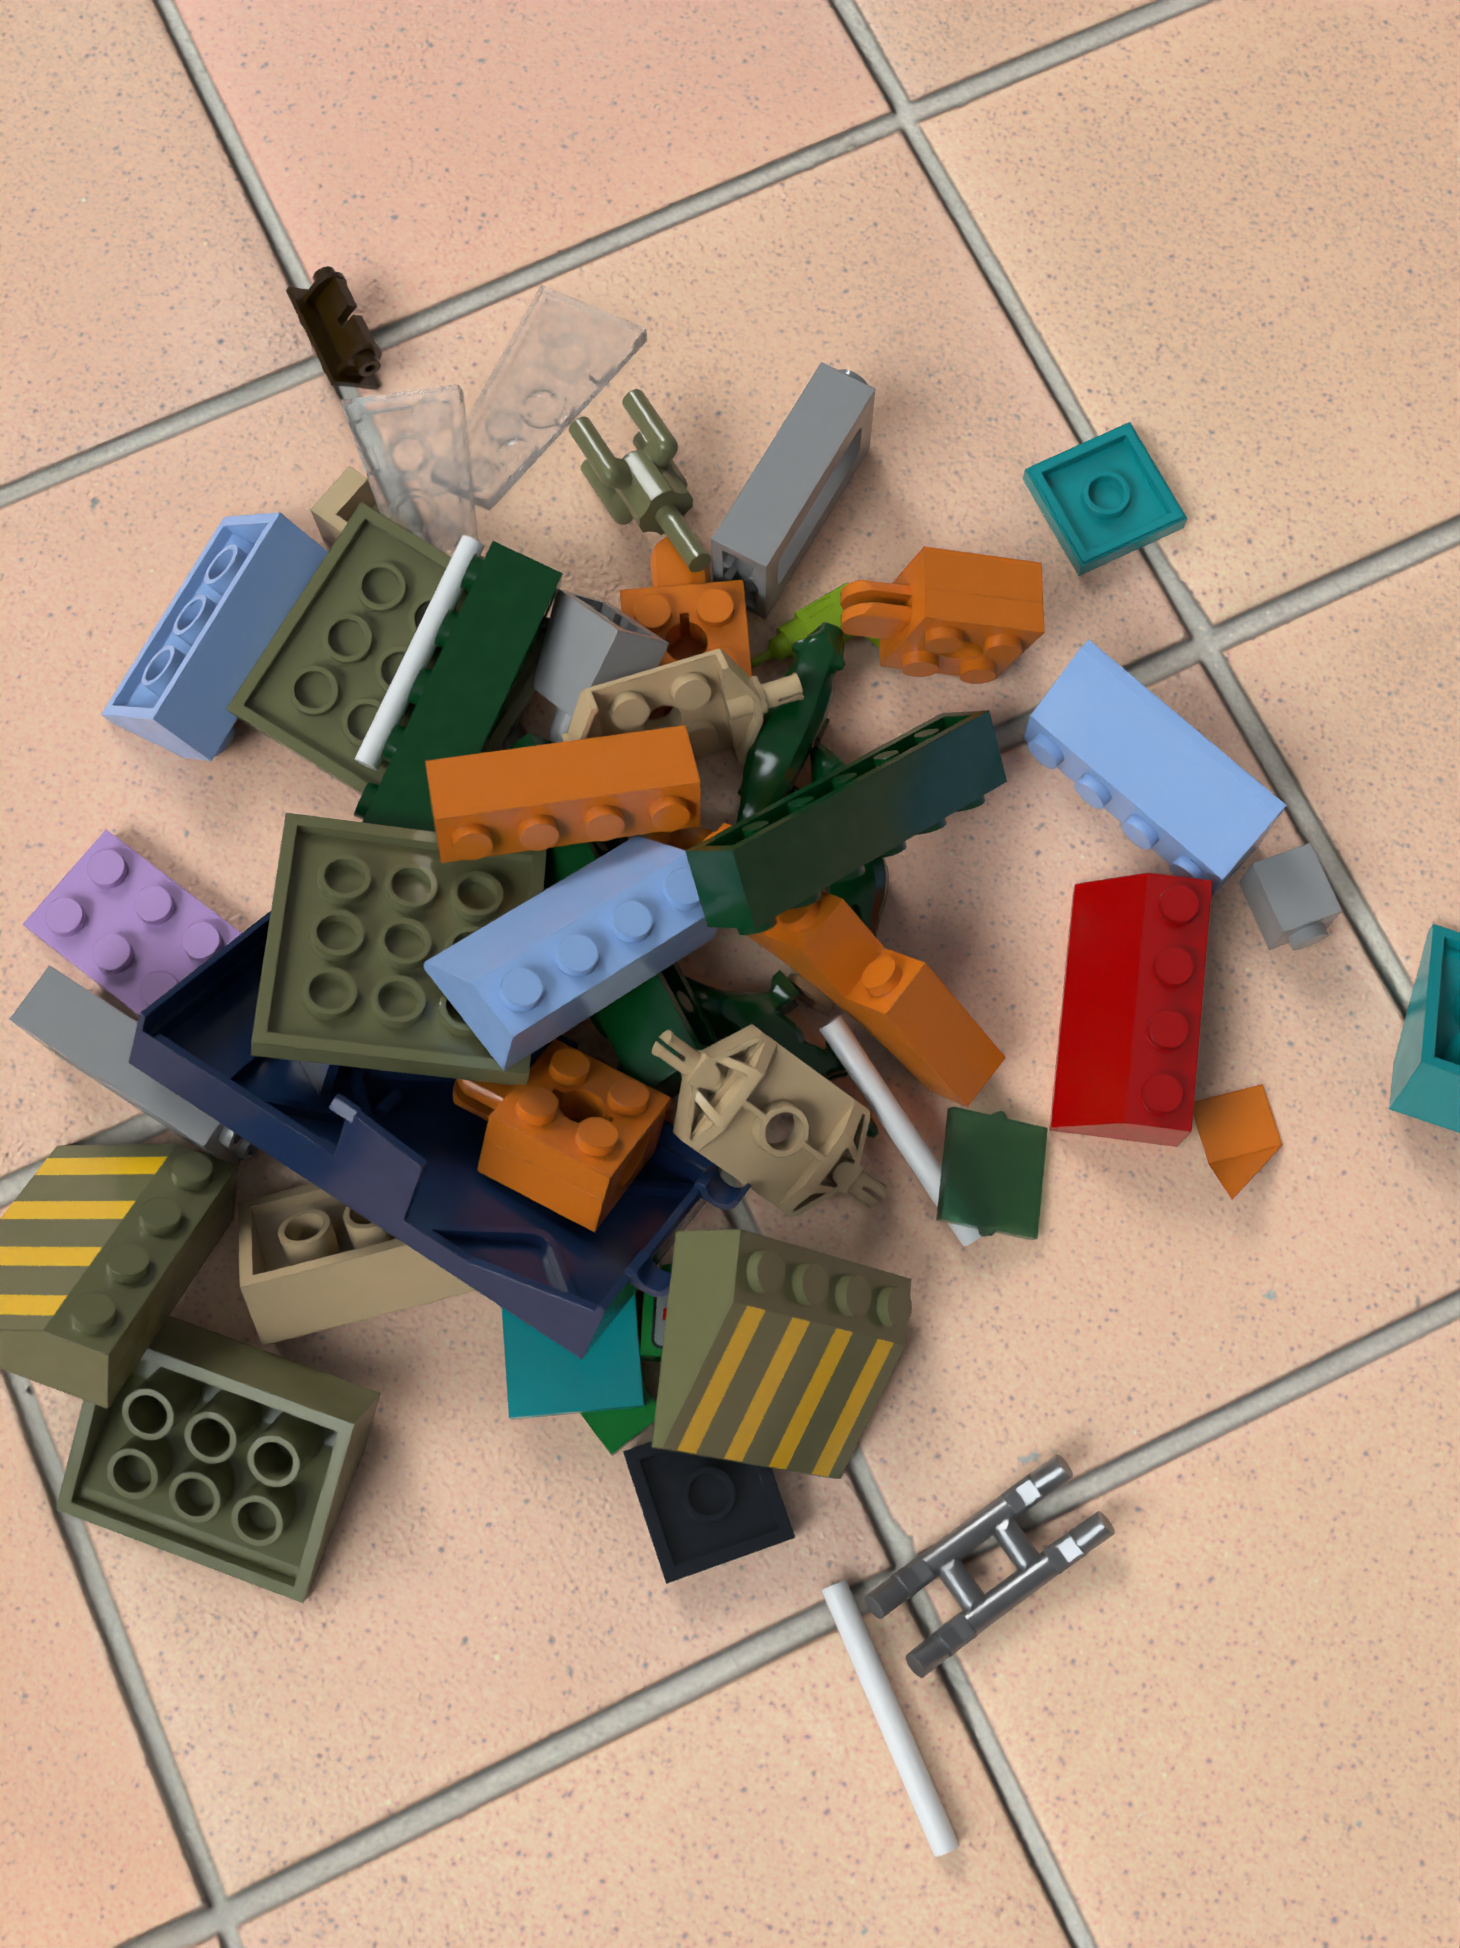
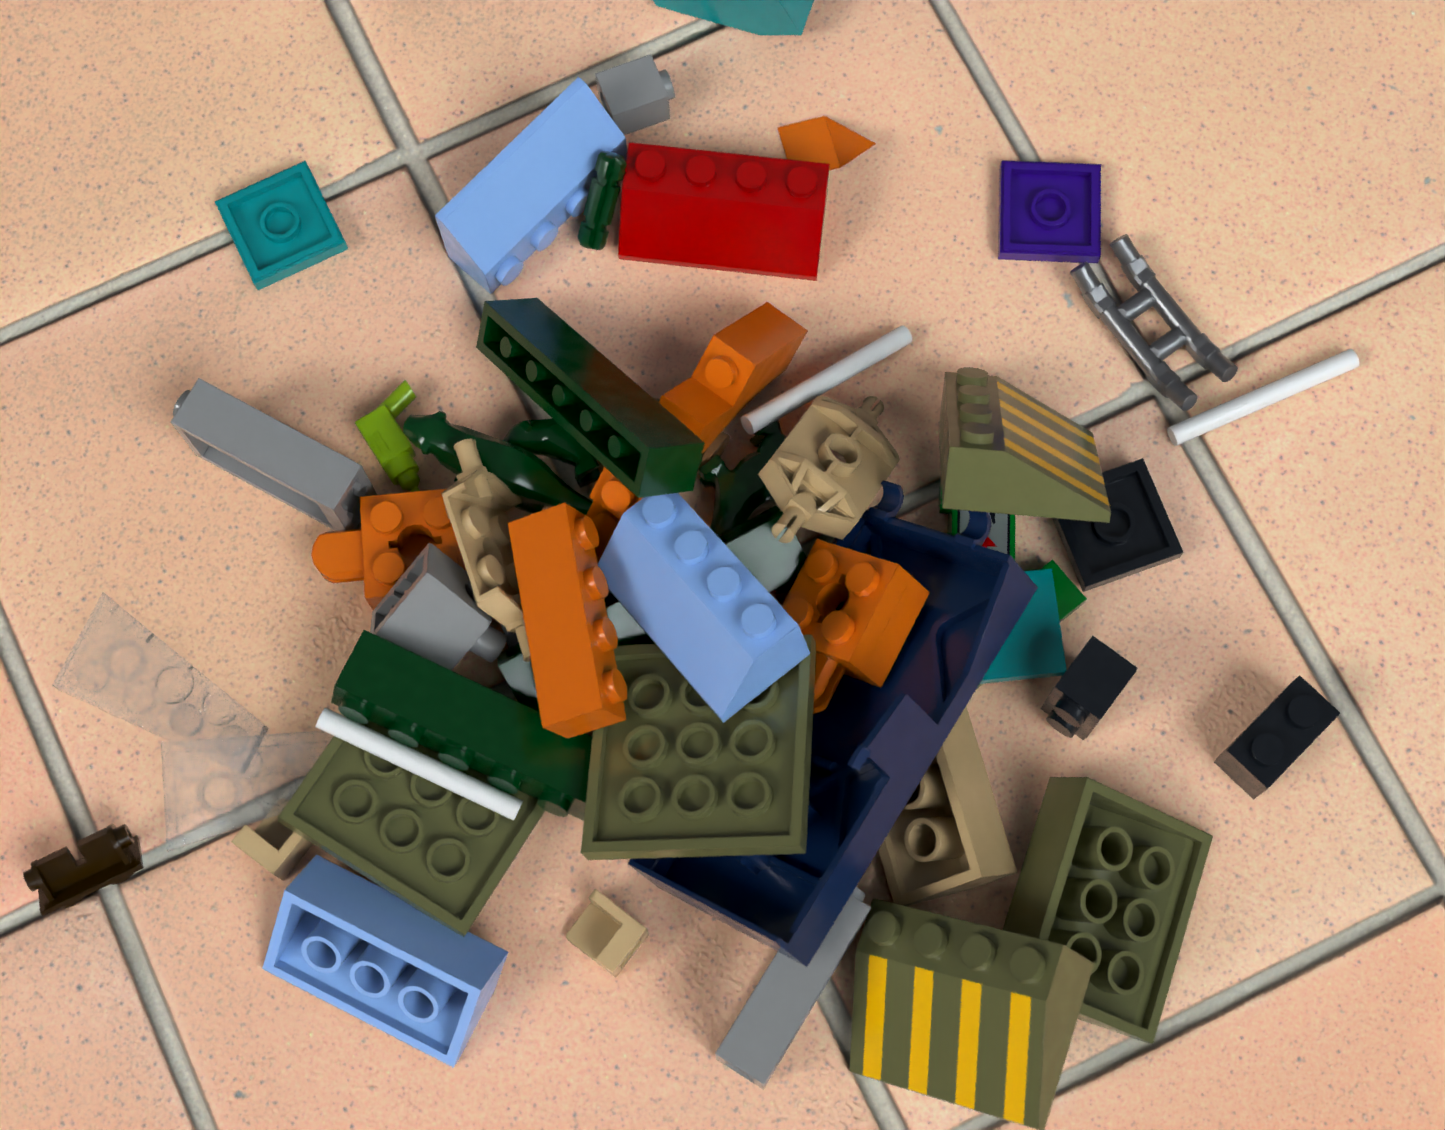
camera: 90 degrees left, 0 degrees up
(128, 924) = (660, 1015): lavender plate -> none
(231, 875) = (607, 934): none -> tan panel
(414, 1690) = (1277, 737): none -> black brick
(476, 1438) = (1087, 689): none -> black brick
(645, 481) = (258, 585): olive plant -> none
(950, 614) = (400, 326): orange brick -> none
(992, 1173) = (856, 317): clear green piece -> none
(1138, 854) = (601, 200): none -> dark green axle
(1152, 1436) = (1049, 212): none -> dark purple tile

